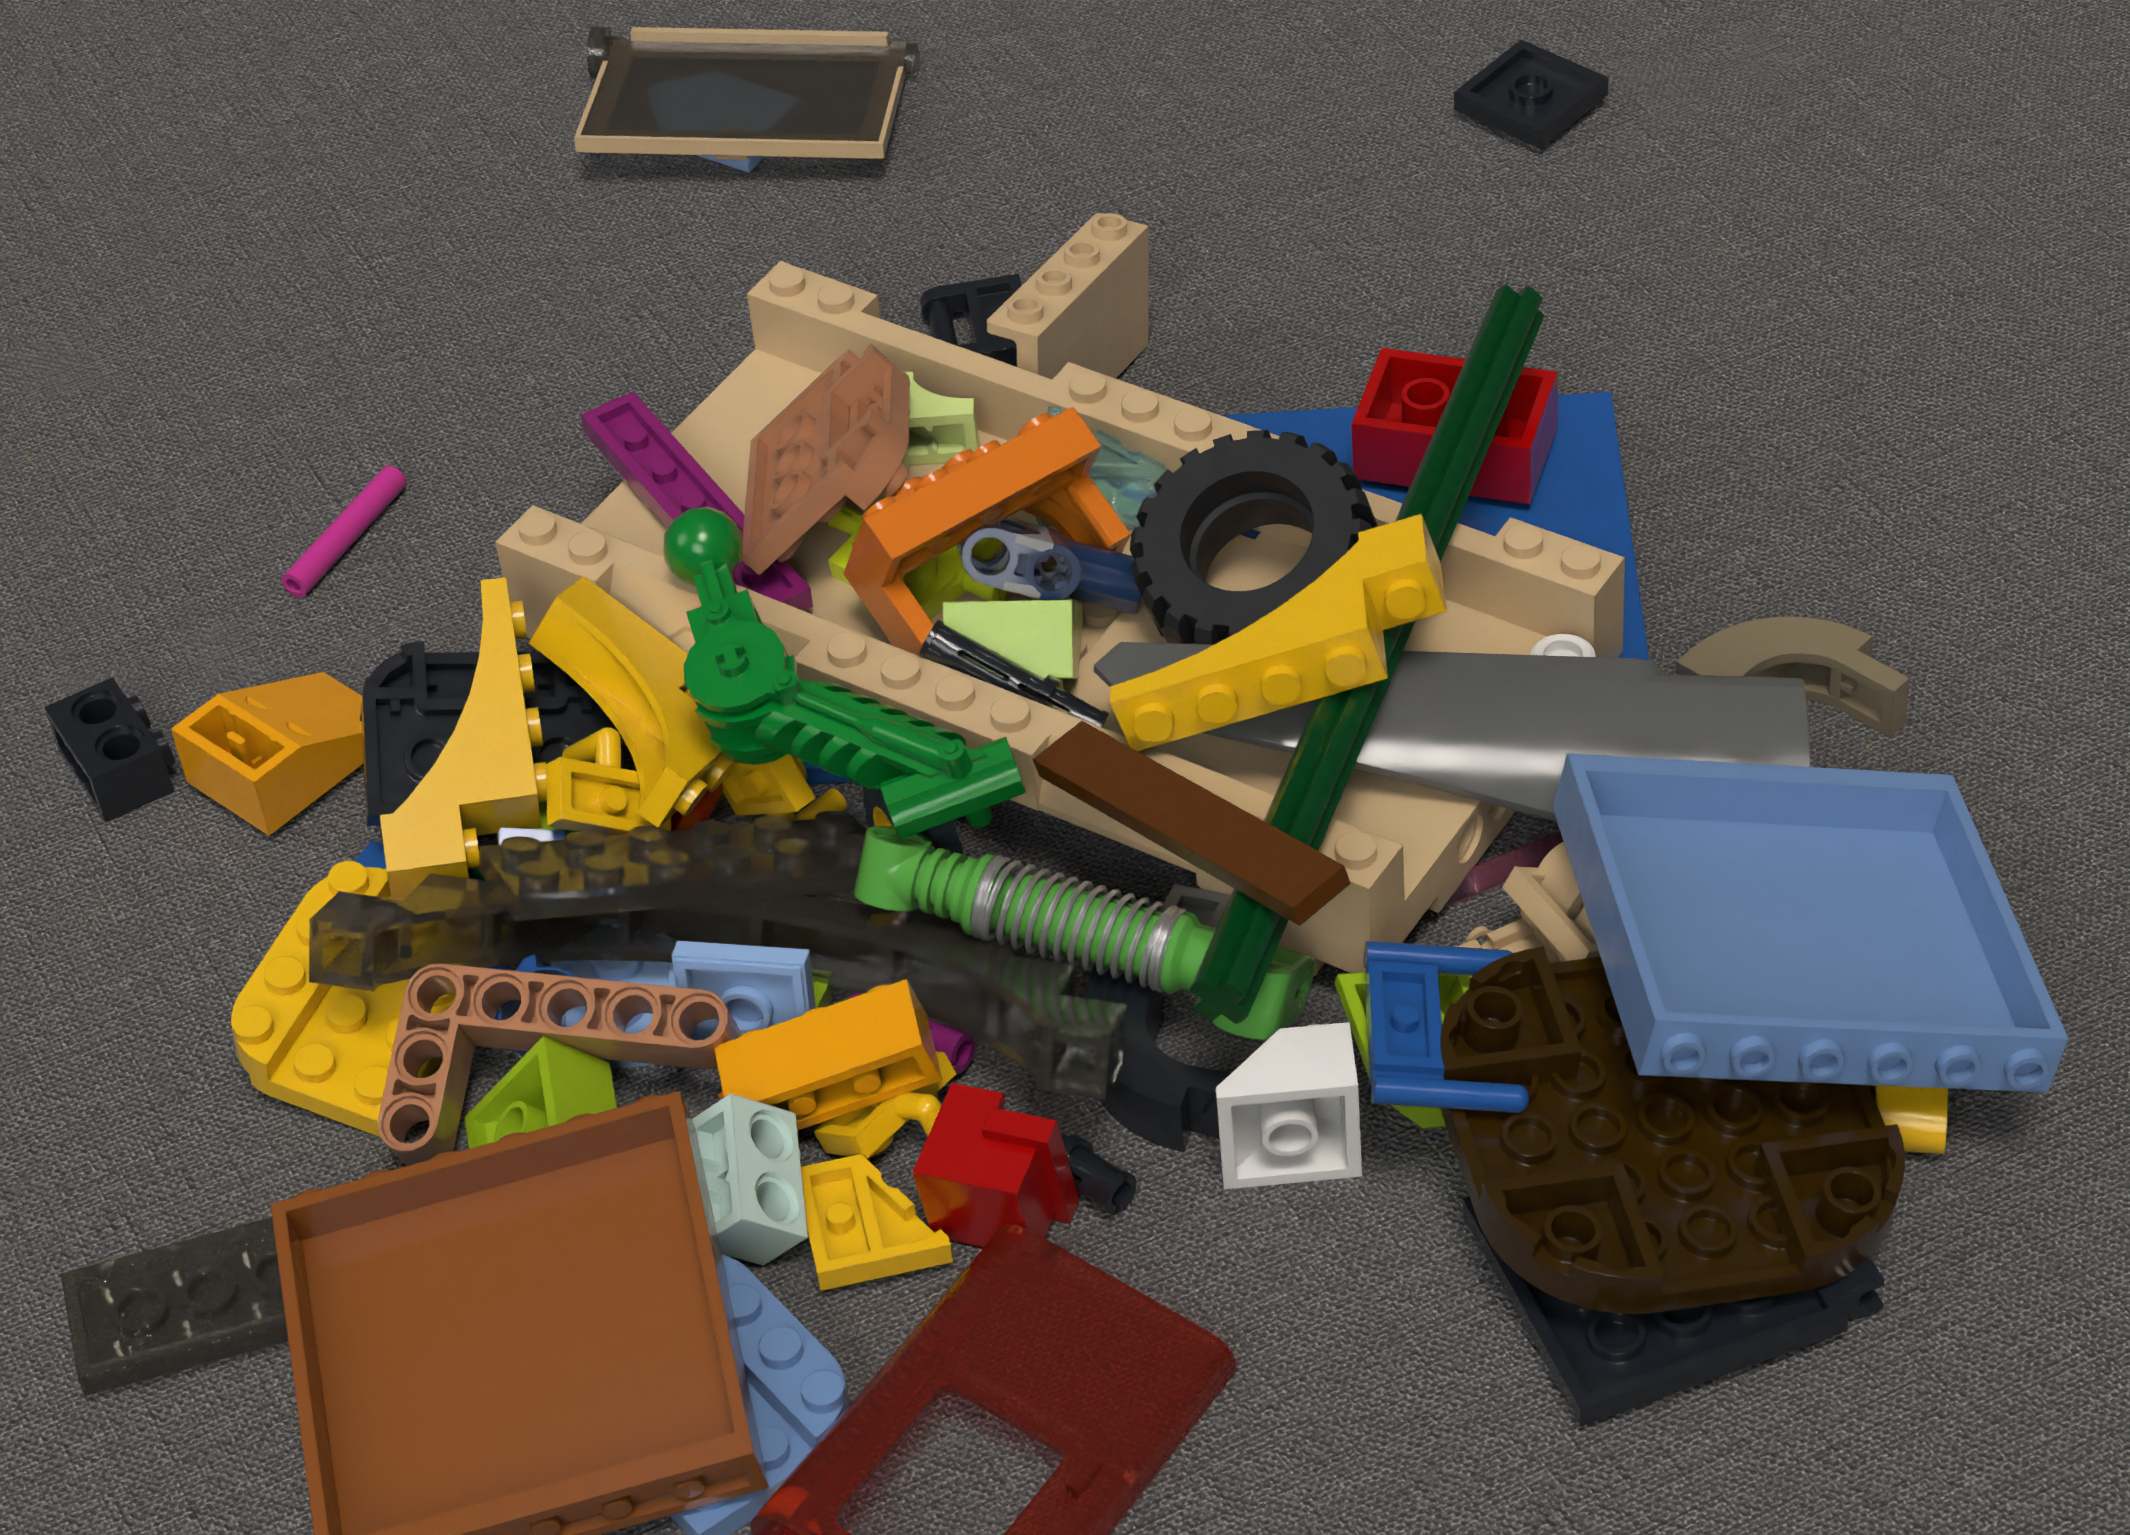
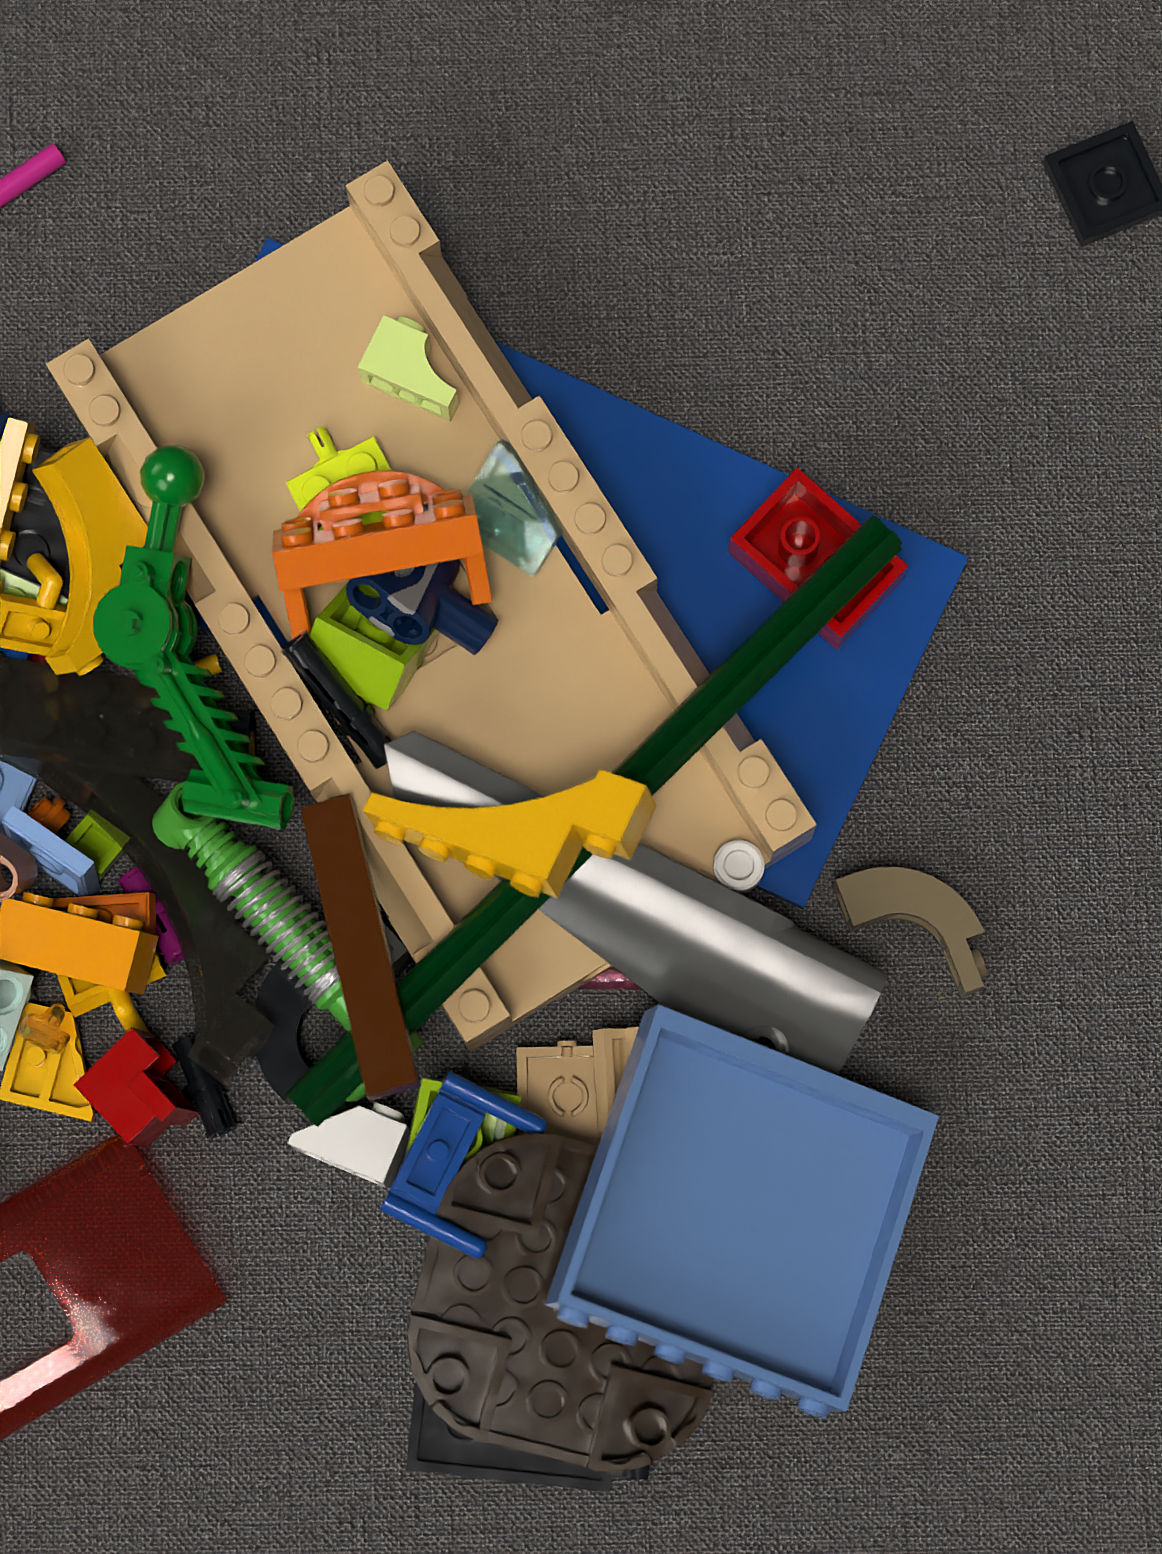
camera: 25 degrees right, 35 degrees up
(674, 481) = (217, 375): magenta plate -> none
(827, 445) = (313, 409): nougat plate -> none
(841, 1164) = (46, 1031): none -> clear yellow tile
(981, 300) = (567, 227): black plate -> none
(1083, 302) = (593, 305): tan panel -> none
(1226, 494) = (495, 689): black tyre -> none

